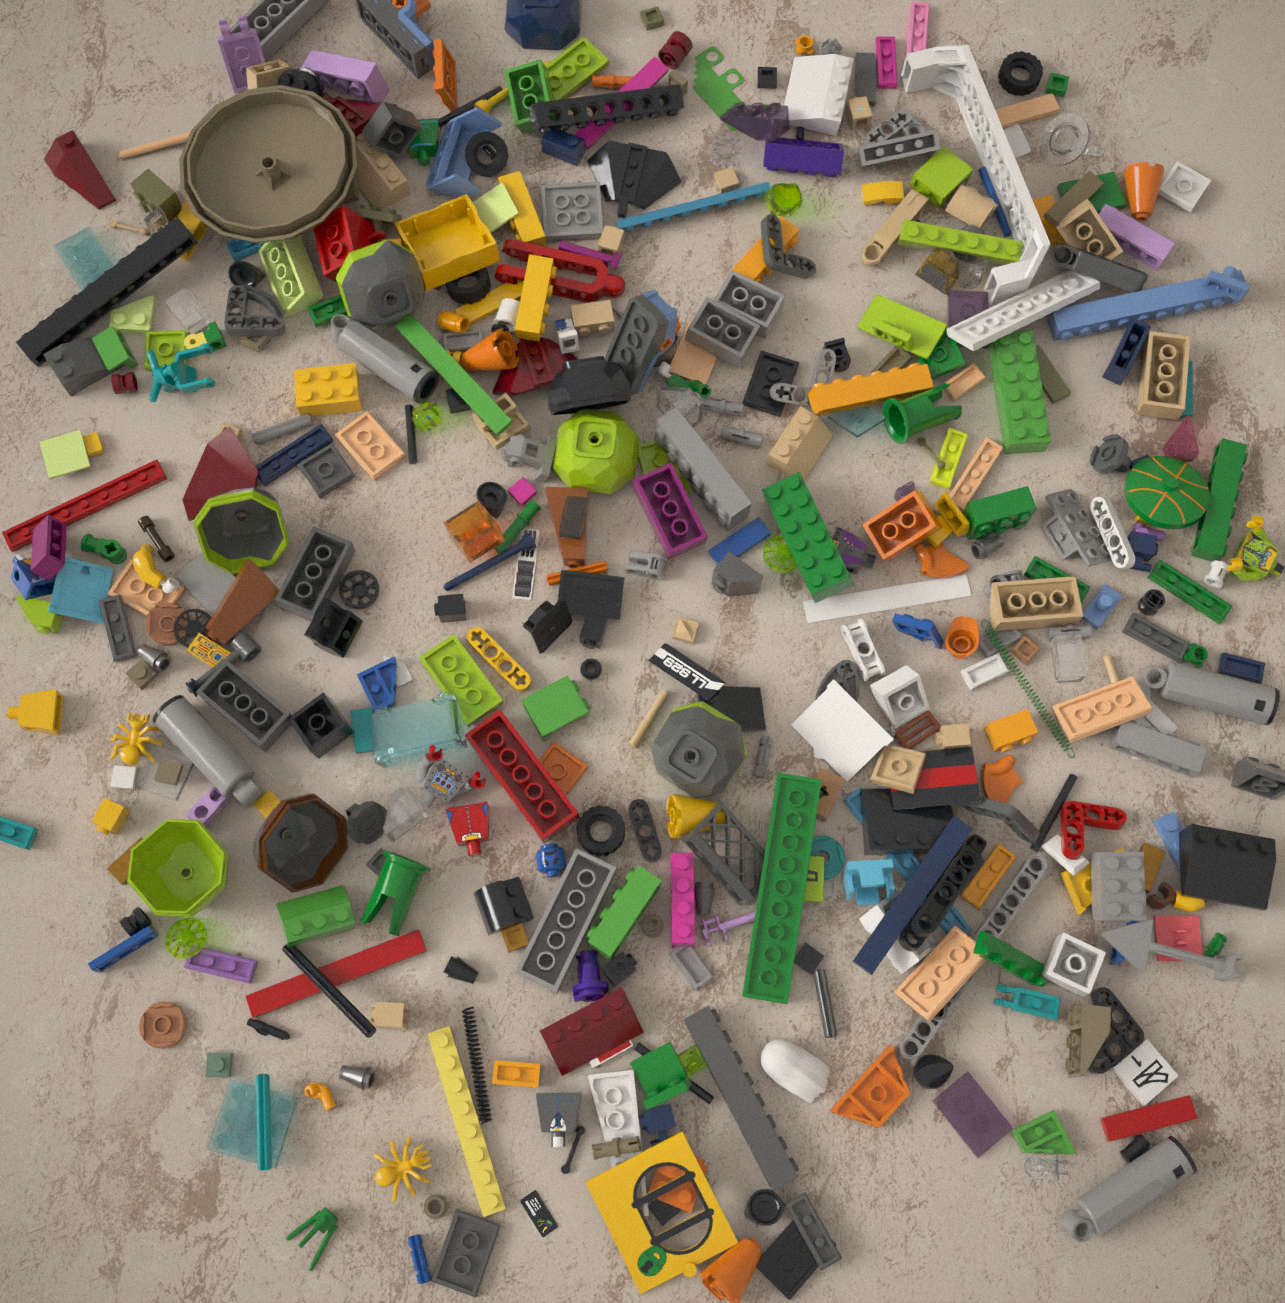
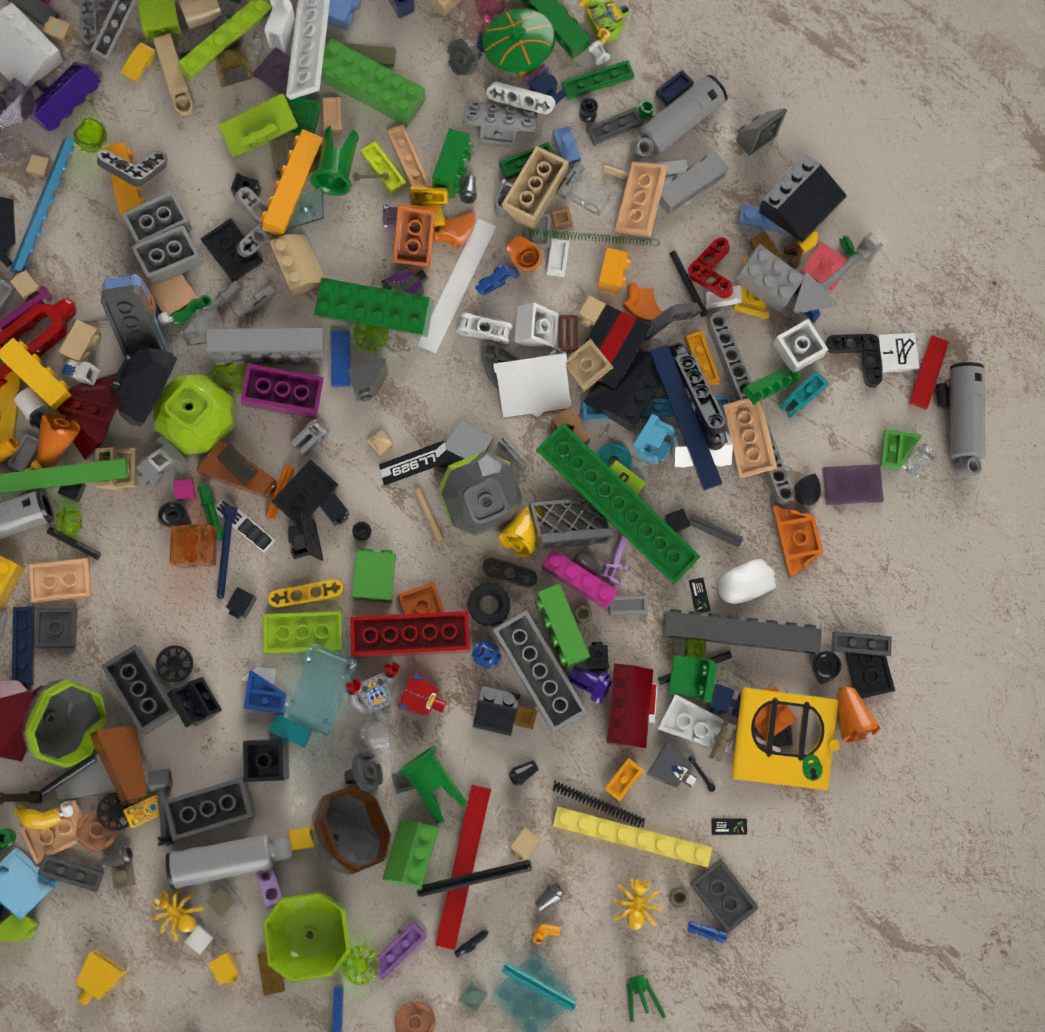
camera: 60 degrees left, 5 degrees up
(135, 922) = (322, 997): black wheel -> none
(201, 567) = (68, 775): none -> black bar
(749, 1030) = (699, 595): none -> black sticker
(1087, 1033) = (854, 373): dark tan slope -> none

